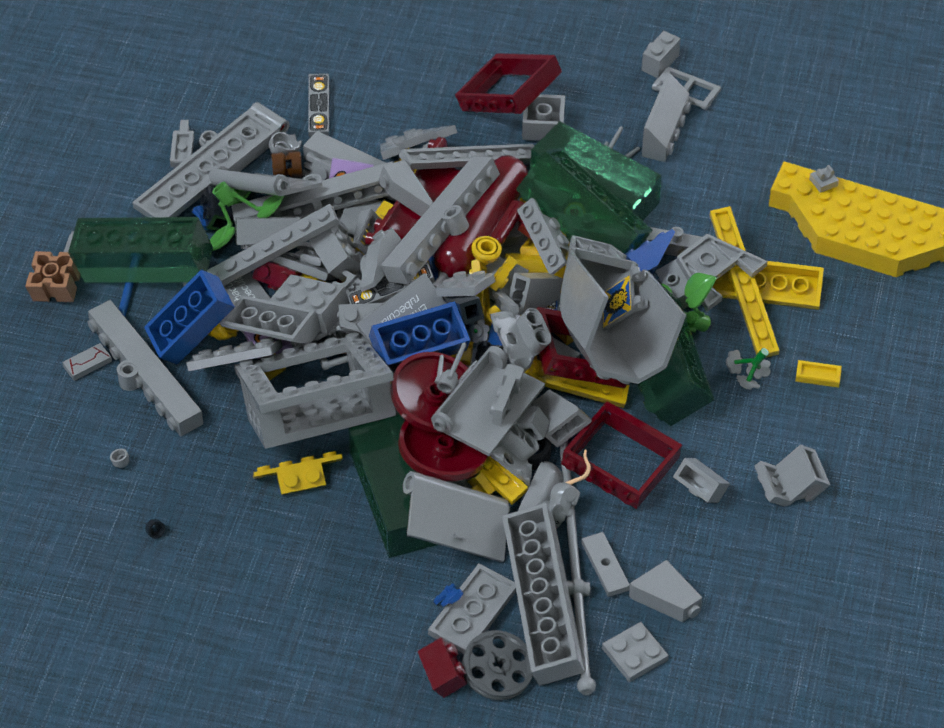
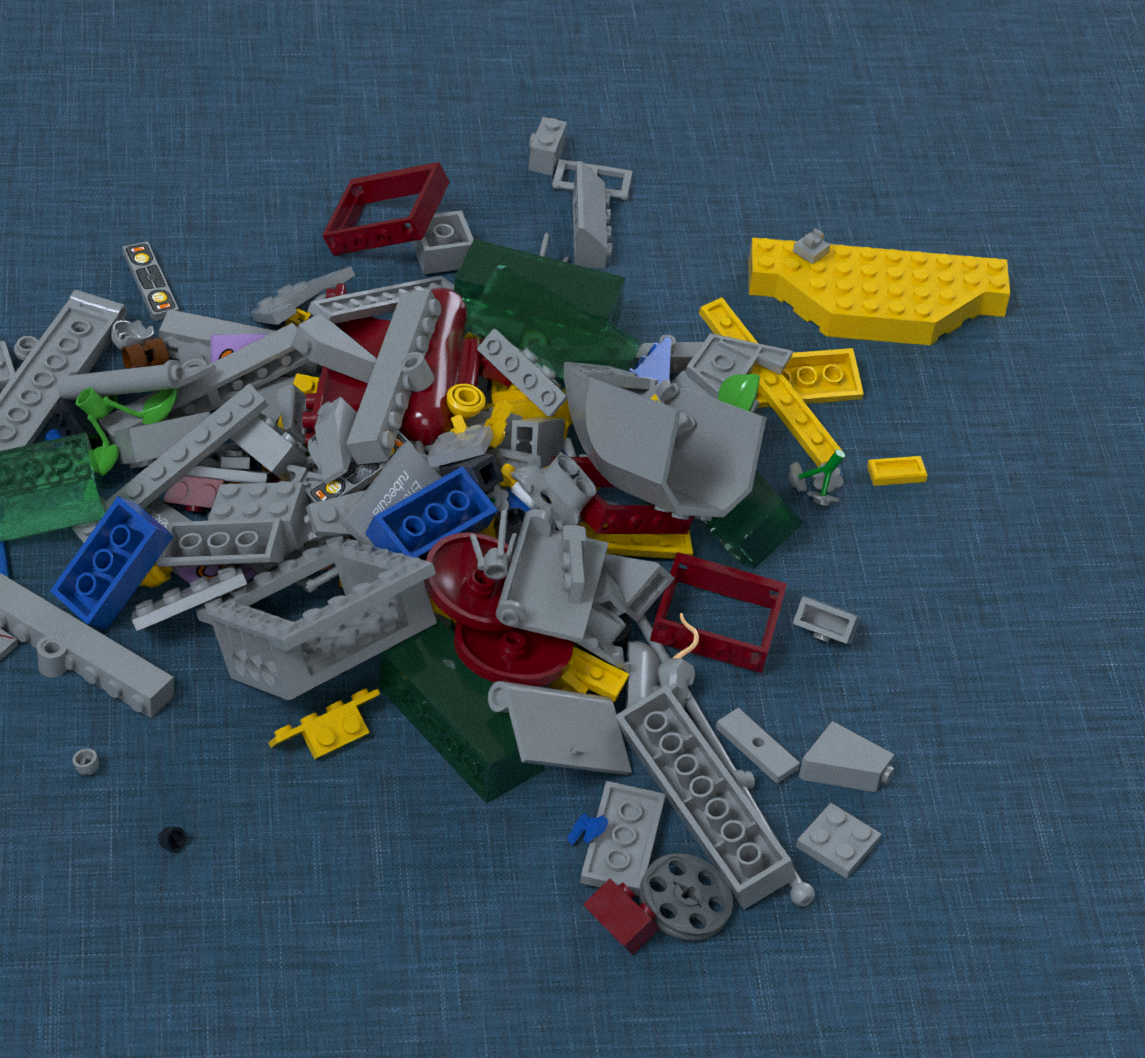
camera: 25 degrees left, 5 degrees down
(794, 478) = (929, 592): light grey piece -> none

